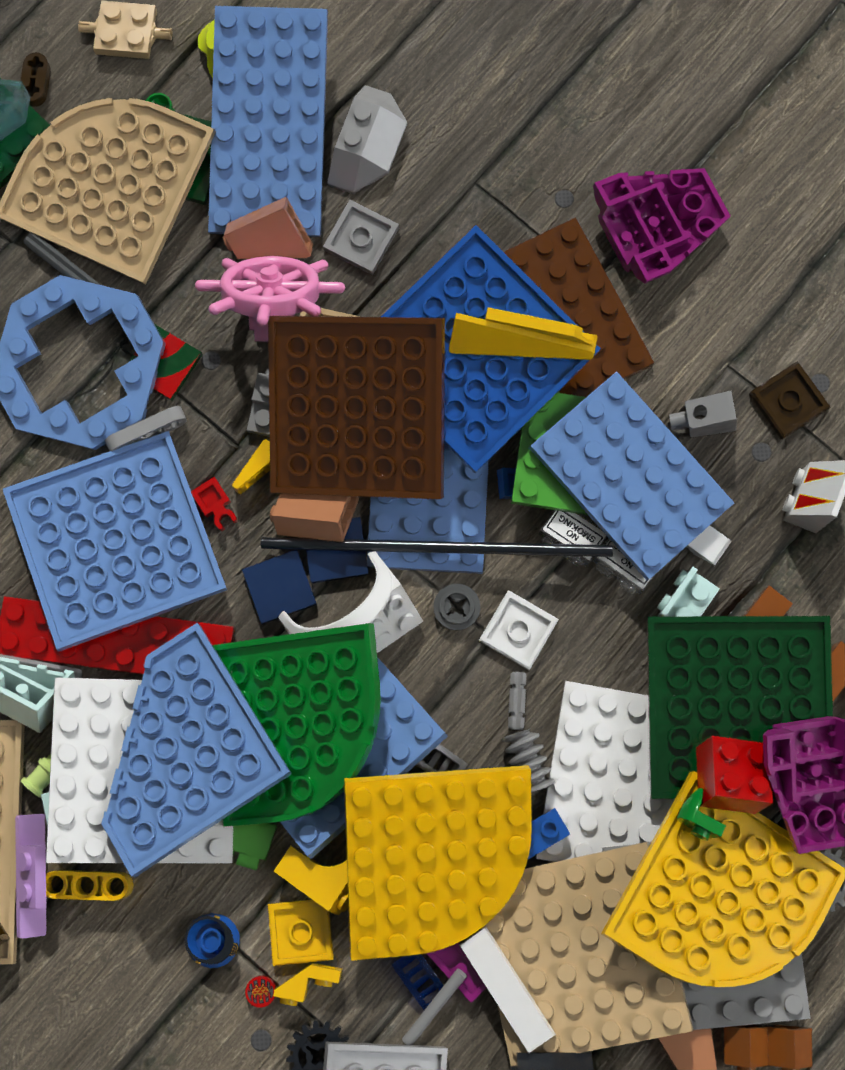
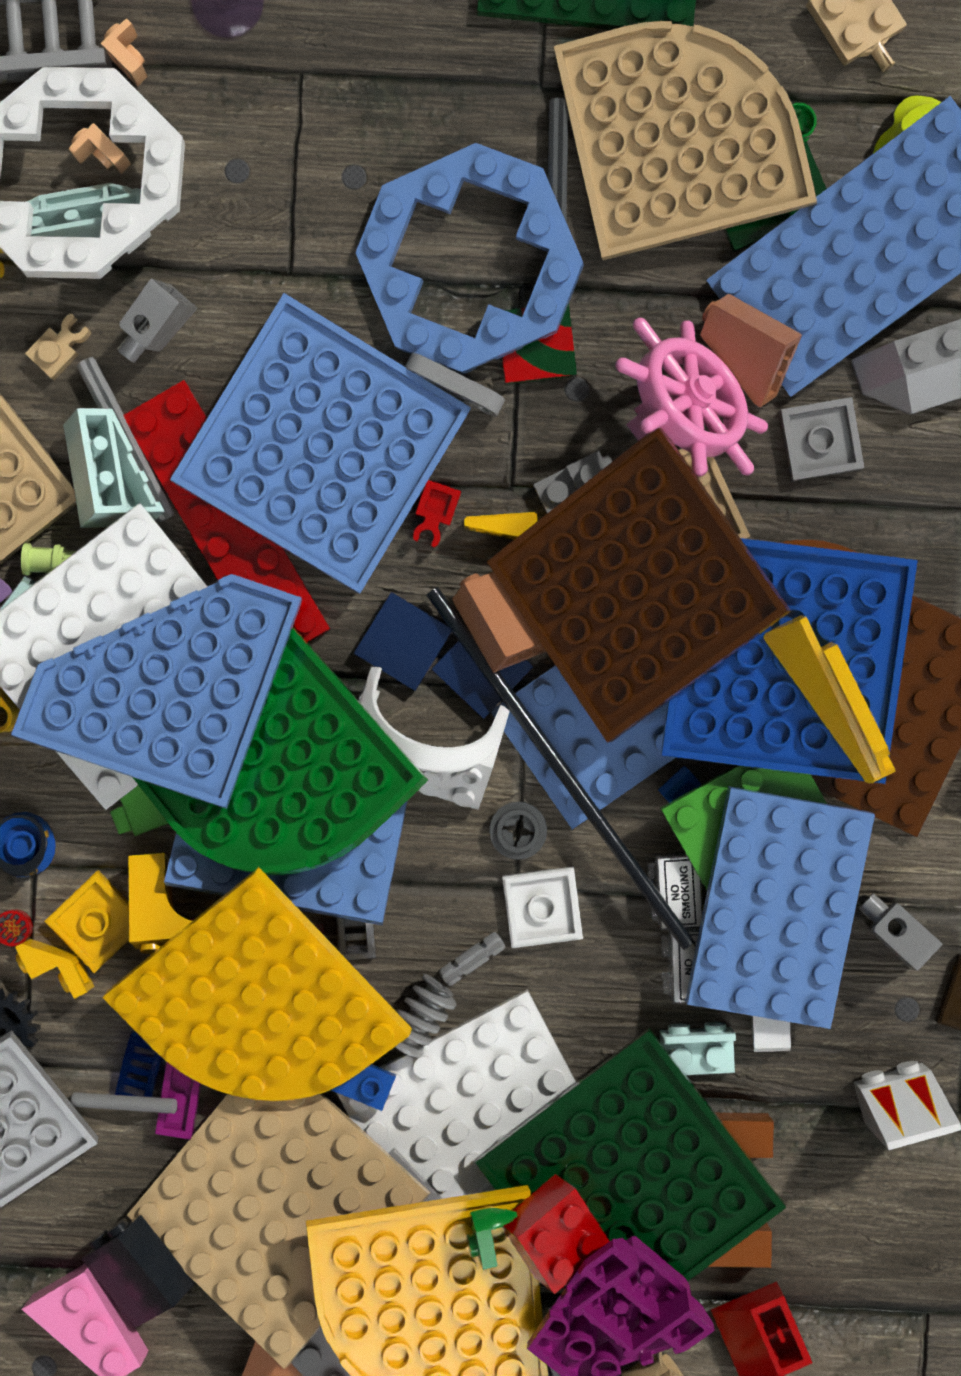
camera: 45 degrees right, 10 degrees up
(507, 990) = (191, 1162): white tile -> none

